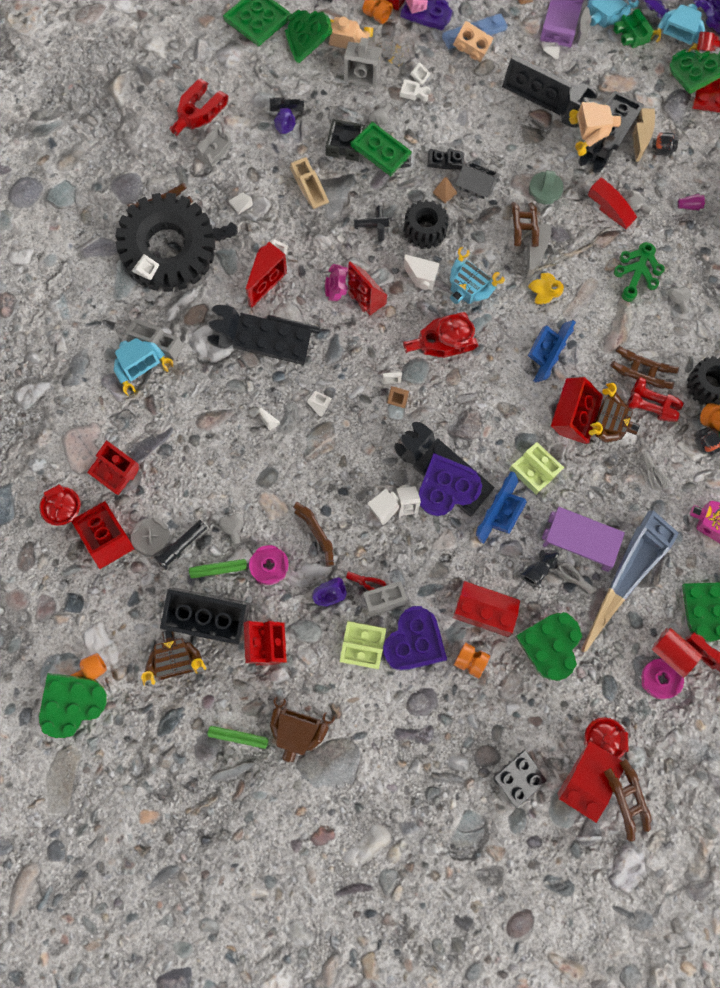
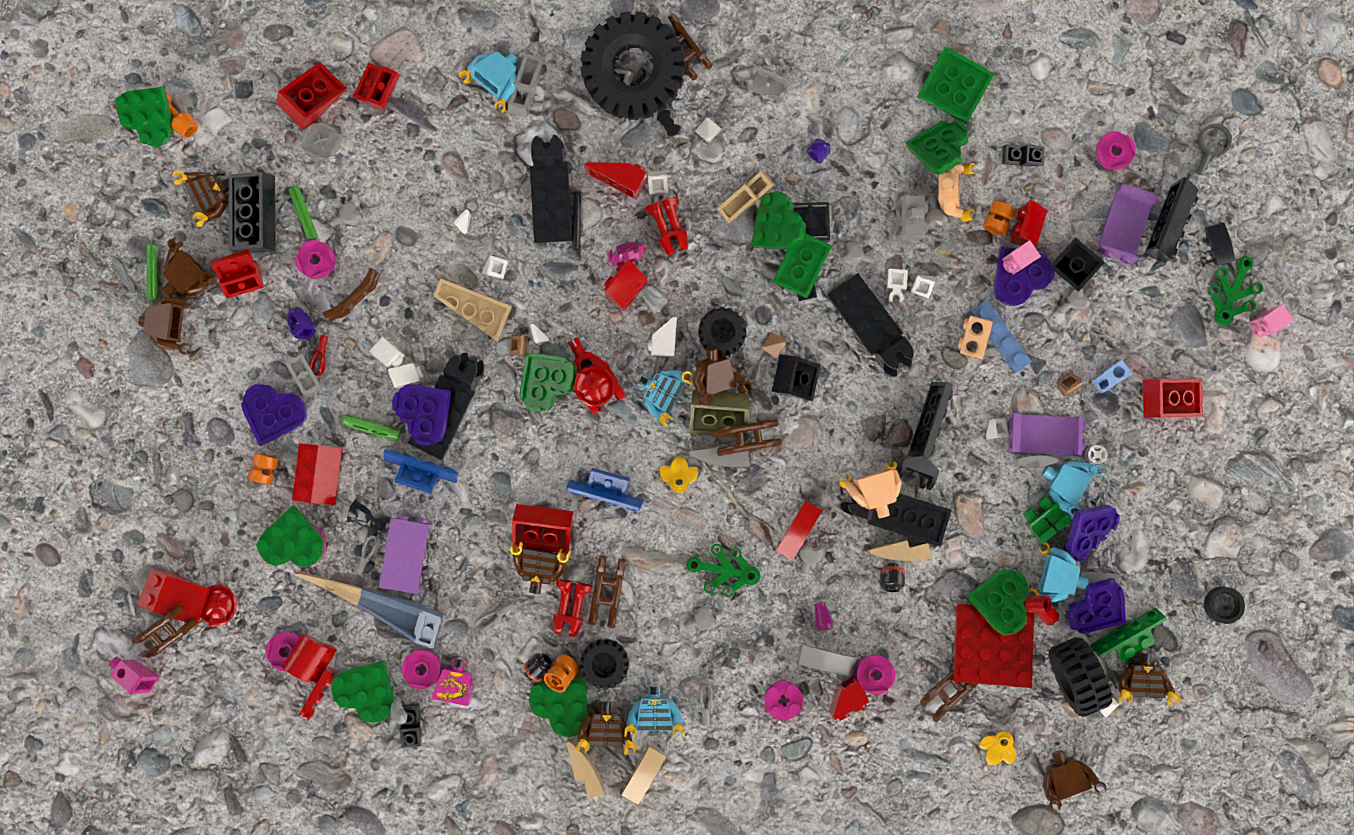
camera: 80 degrees right, 15 degrees up
(59, 505) = (329, 47): red piece -> none
(145, 267) = (590, 55): white slope -> none
(174, 550) = (309, 167): black pin -> none
(190, 115) = (807, 63): red piece -> none
(249, 699) = (183, 272): none -> reddish brown torso
(295, 105) = (837, 141): black slope -> none
(332, 251) = (681, 235): none -> red piece
(340, 161) = (777, 223): none -> green plate
(355, 424) = (478, 309): none -> tan wing
(363, 644) = (260, 365): yellowish green slope -> none
(374, 222) = (717, 281): black piece -> none
(437, 376) = (545, 379): none -> green plate
(445, 160) = (815, 337): black slope -> none
(447, 111) = (872, 324): none -> black hinge
(452, 541) = (377, 429): none -> bright green pin
(467, 232) = (716, 375): none -> reddish brown torso
(496, 243) = (725, 411): none -> olive slope
(519, 778) = (167, 531): hinge -> none
(536, 468) = (472, 498): yellowish green slope -> none
(546, 187) = (805, 454): sand green tile -> none
(678, 844) = (133, 676): none -> dark pink torso
(706, 544) = (412, 675): none -> dark pink plate

